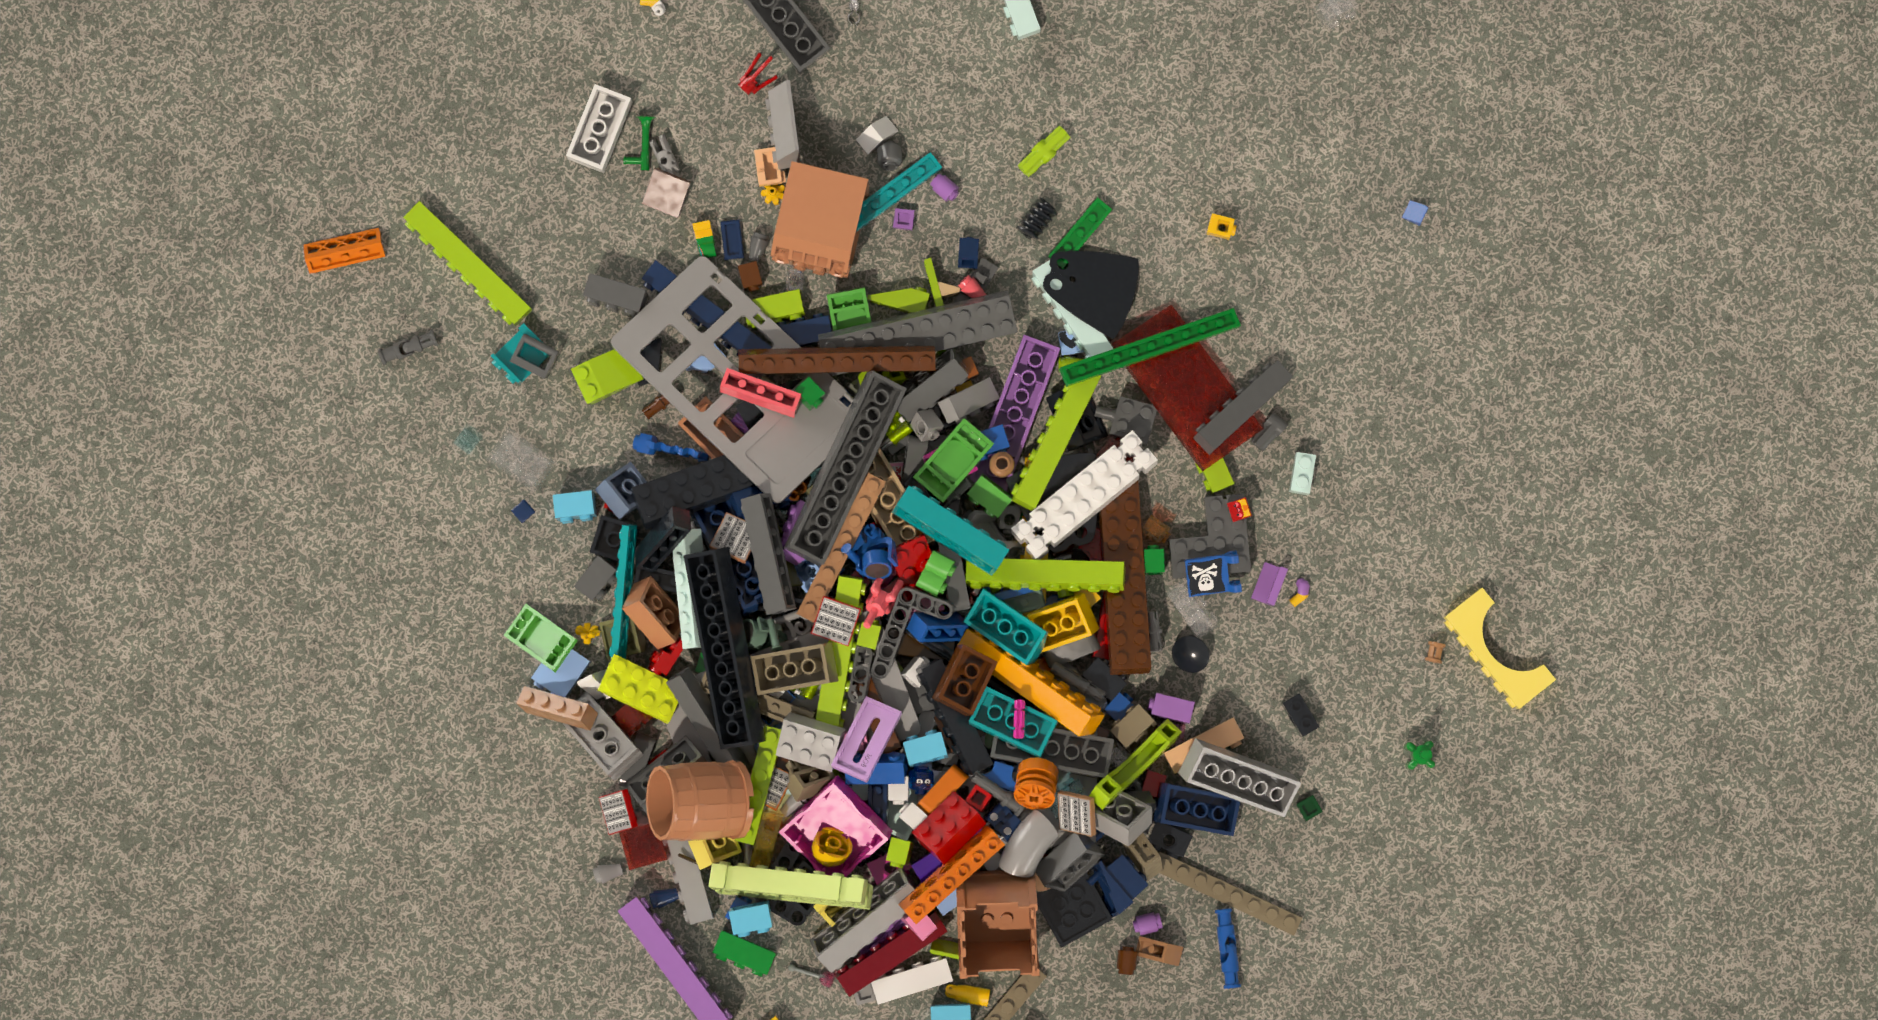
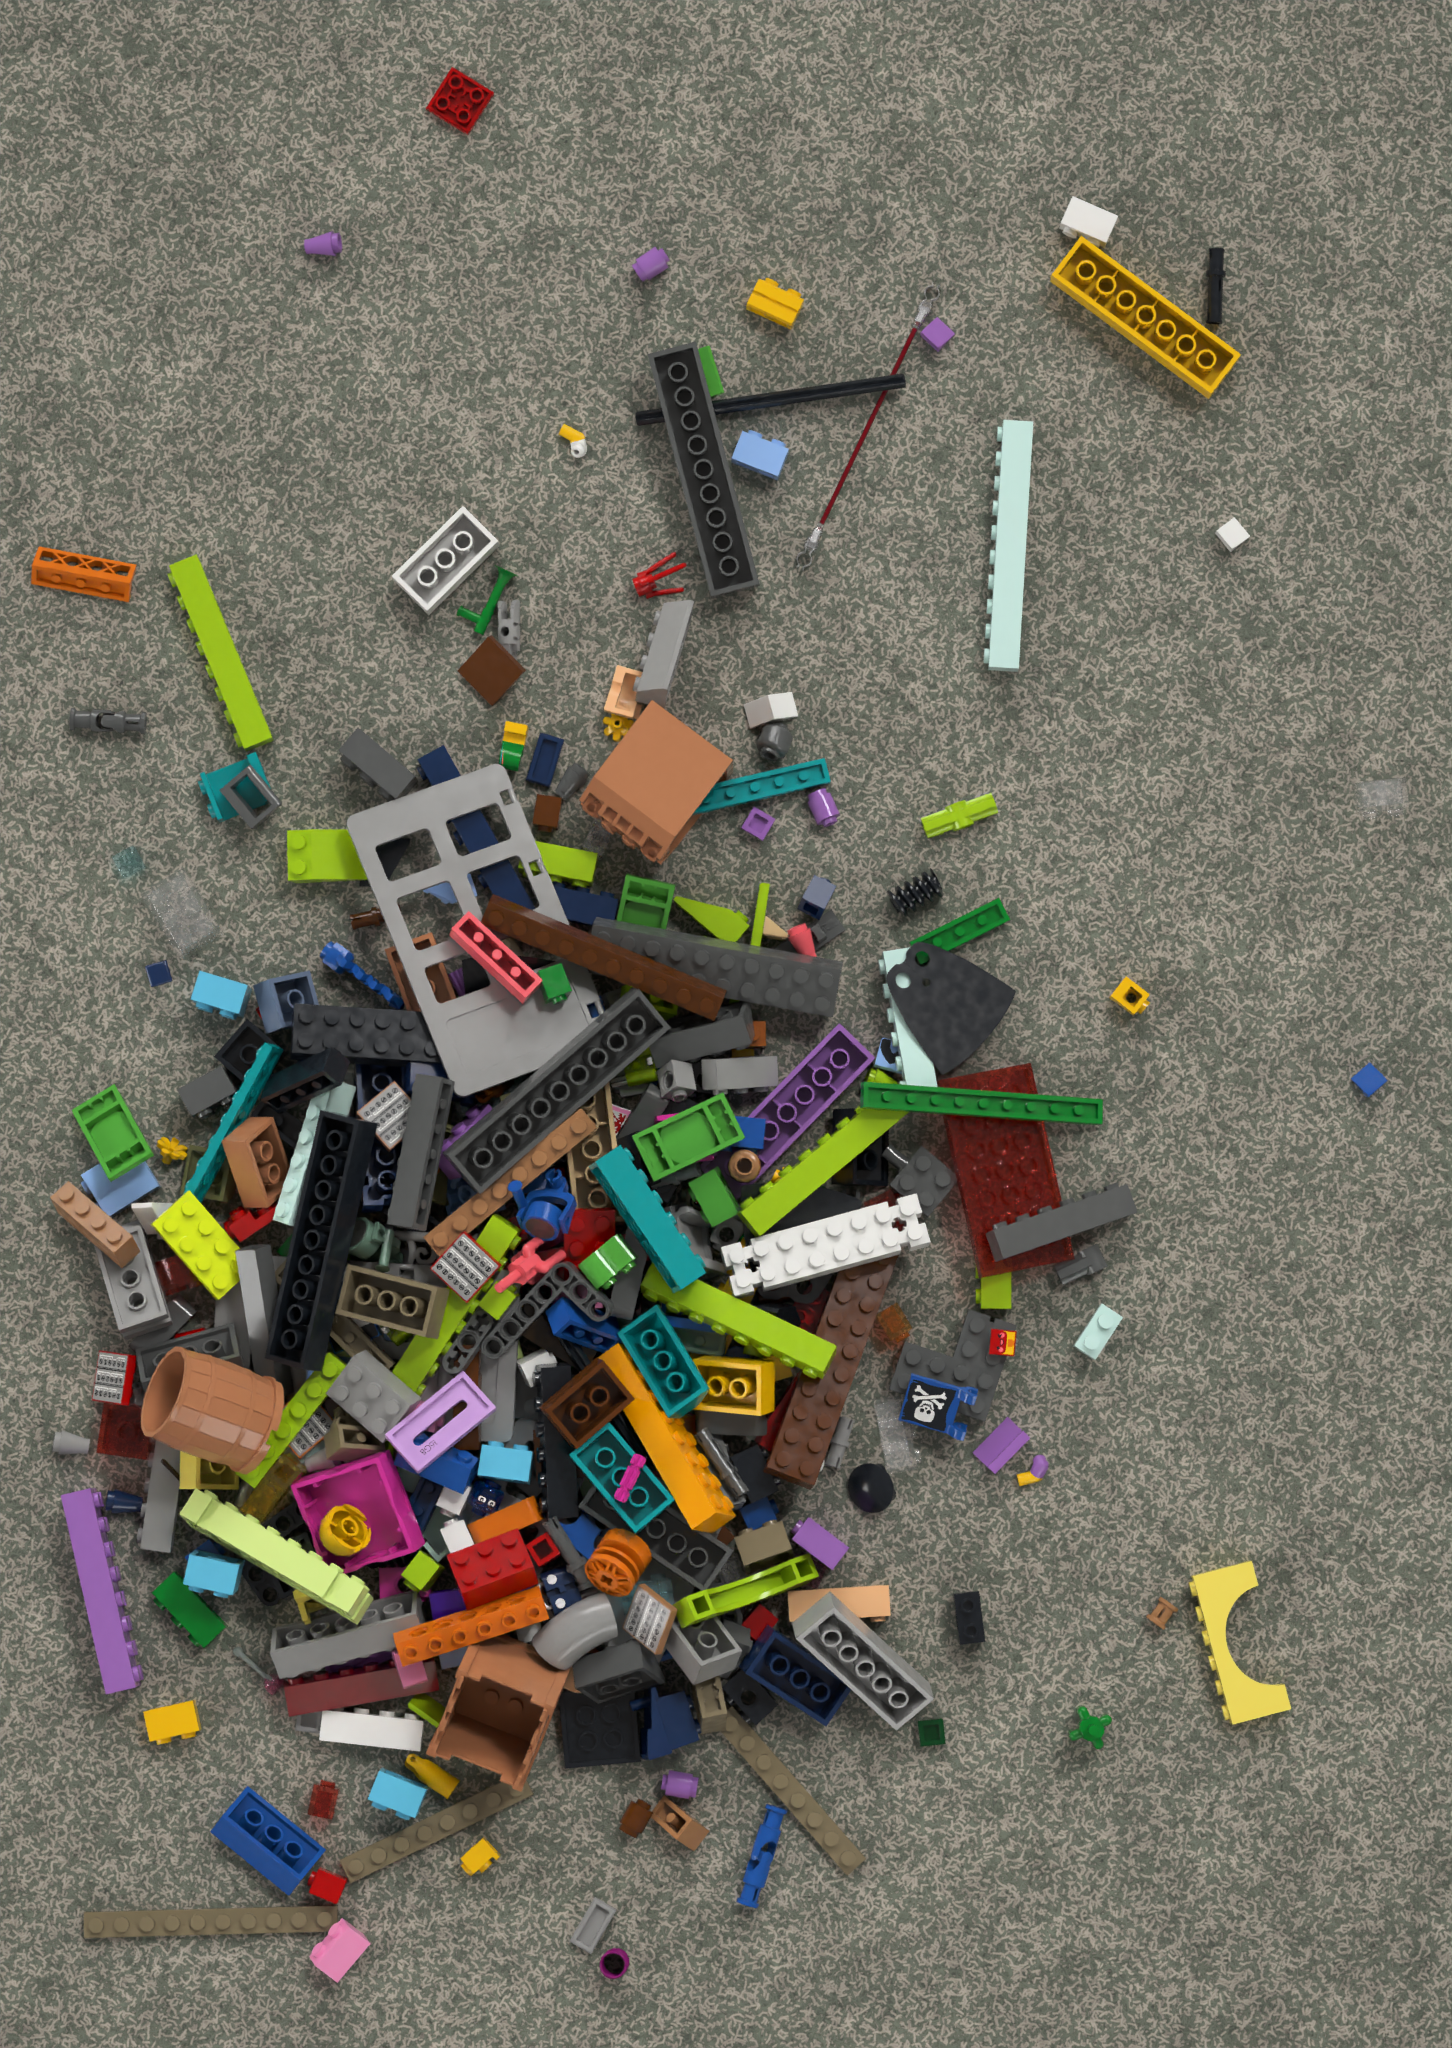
camera: 25 degrees right, 0 degrees up
(1154, 560) = (875, 1358): green brick -> none

